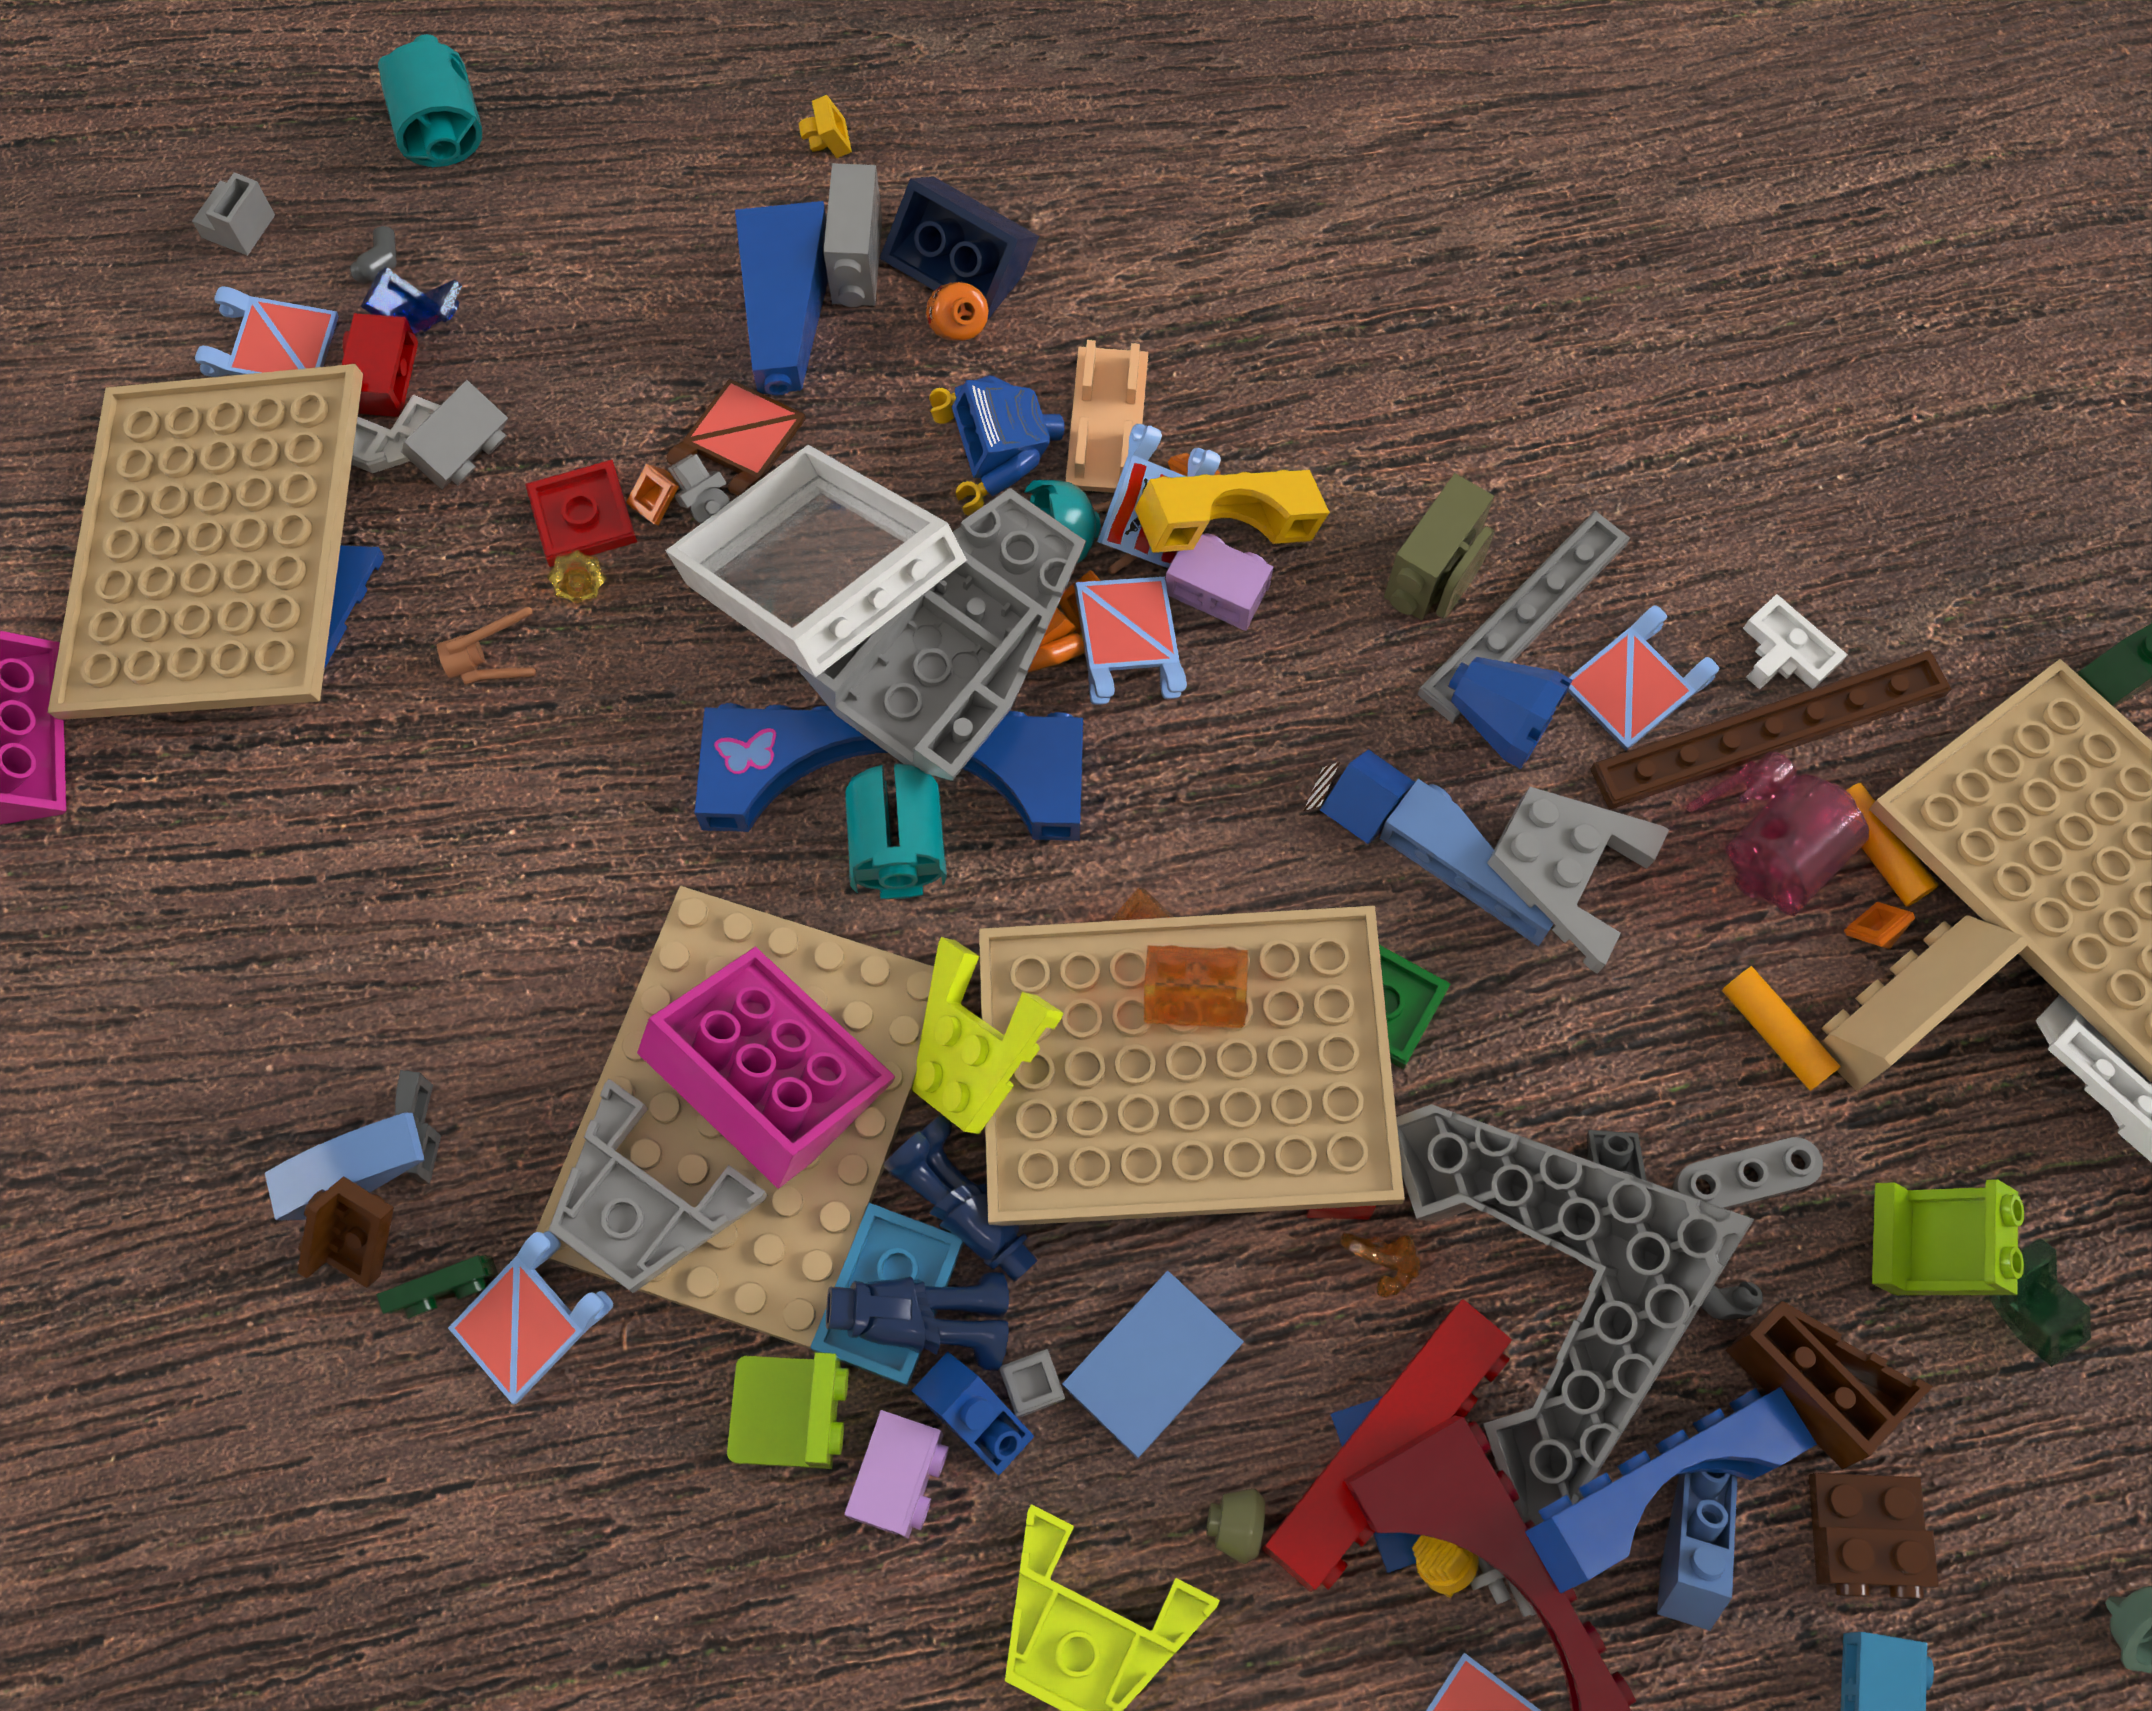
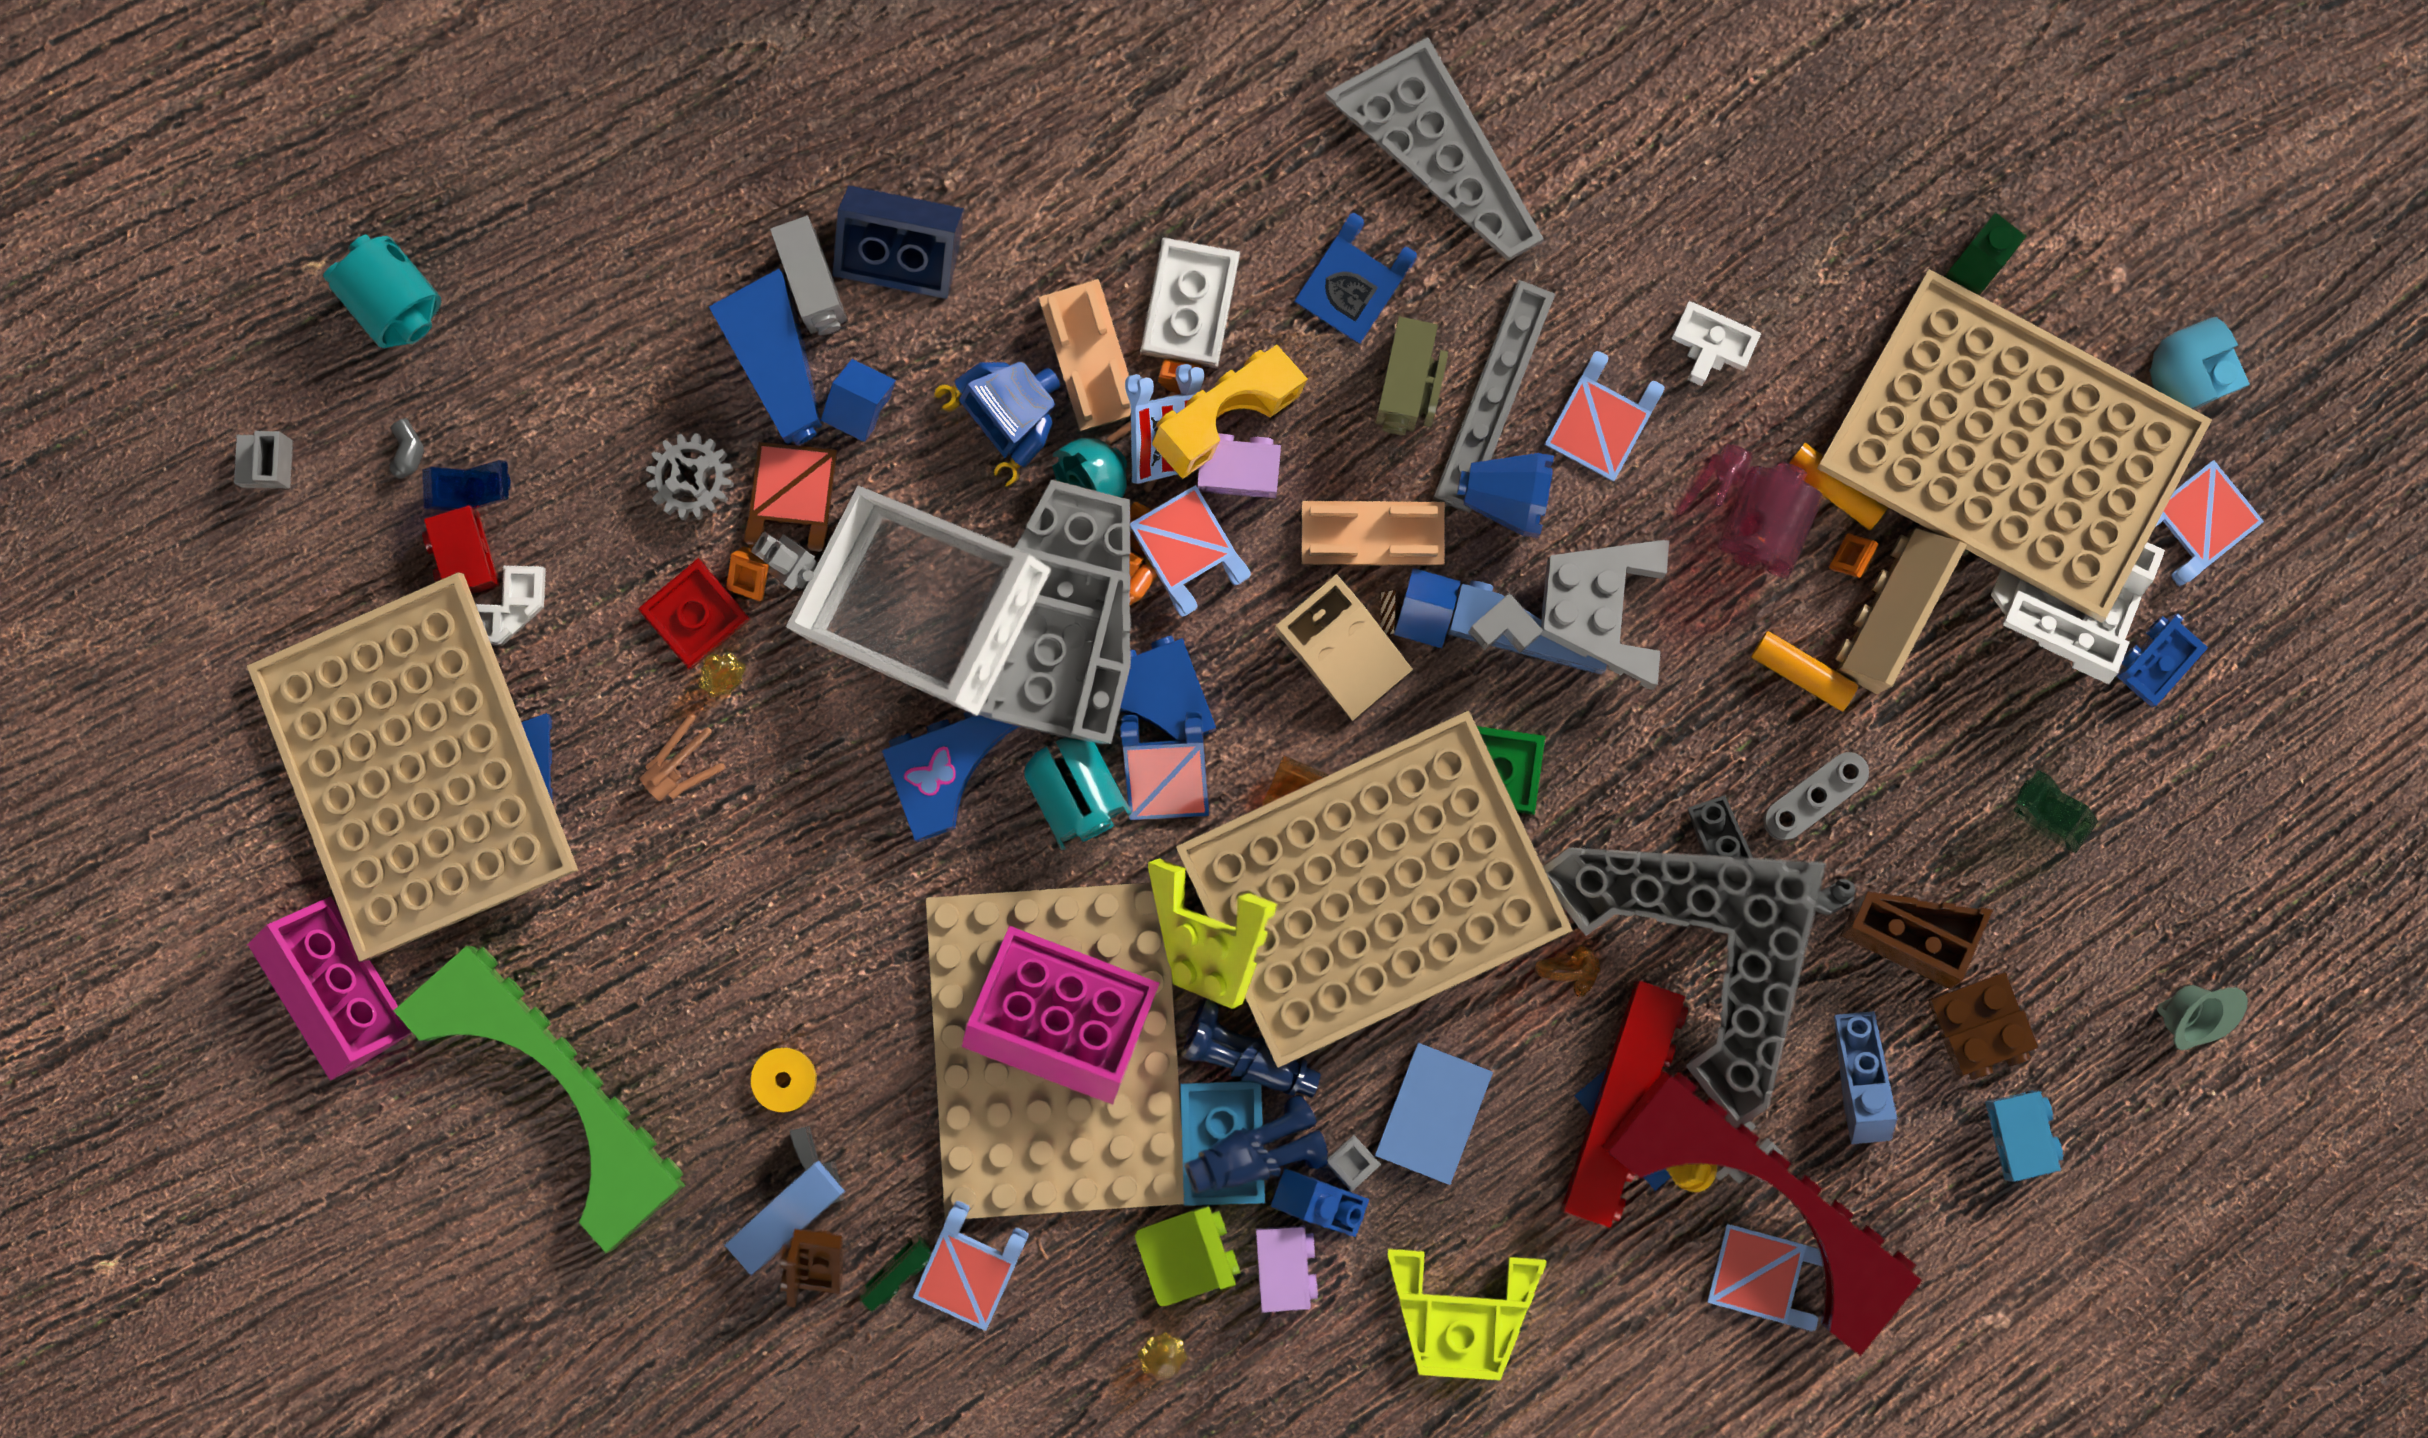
camera: 20 degrees left, 15 degrees up
(203, 1045) = (626, 1173): none -> bright green arch
(270, 336) = (362, 562): flag -> none
(416, 1003) = (765, 1076): none -> yellow piece
(455, 436) = (563, 593): light grey brick -> none
(620, 380) = (676, 484): none -> light grey gear
(628, 1218) = (1009, 1169): light grey wing -> none
(704, 1522) = (1162, 1355): none -> clear yellow piece
(826, 128) = (734, 170): yellow tile -> none
(846, 369) = (857, 399): none -> blue piece
(954, 324) = (925, 309): orange head -> none
(1003, 857) = (1165, 776): none -> flag
(1195, 986) = (1359, 830): clear orange bracket -> none
(1235, 408) = (1190, 302): none -> white tile
(1238, 1524) = (1538, 1203): olive cone -> none
(1257, 797) = (1343, 647): none -> tan slope
(1338, 699) = (1373, 533): none -> light nougat brick
(1411, 455) = (1350, 285): none -> blue flag
(1453, 826) = (1506, 619): none -> light grey piece
(1555, 342) = (1429, 130): none -> light grey wing
(1599, 1529) = (1788, 1116): blue arch -> none
(1769, 728) = (1721, 418): reddish brown tile -> none
(1947, 1240) = (1971, 795): lime panel -> none

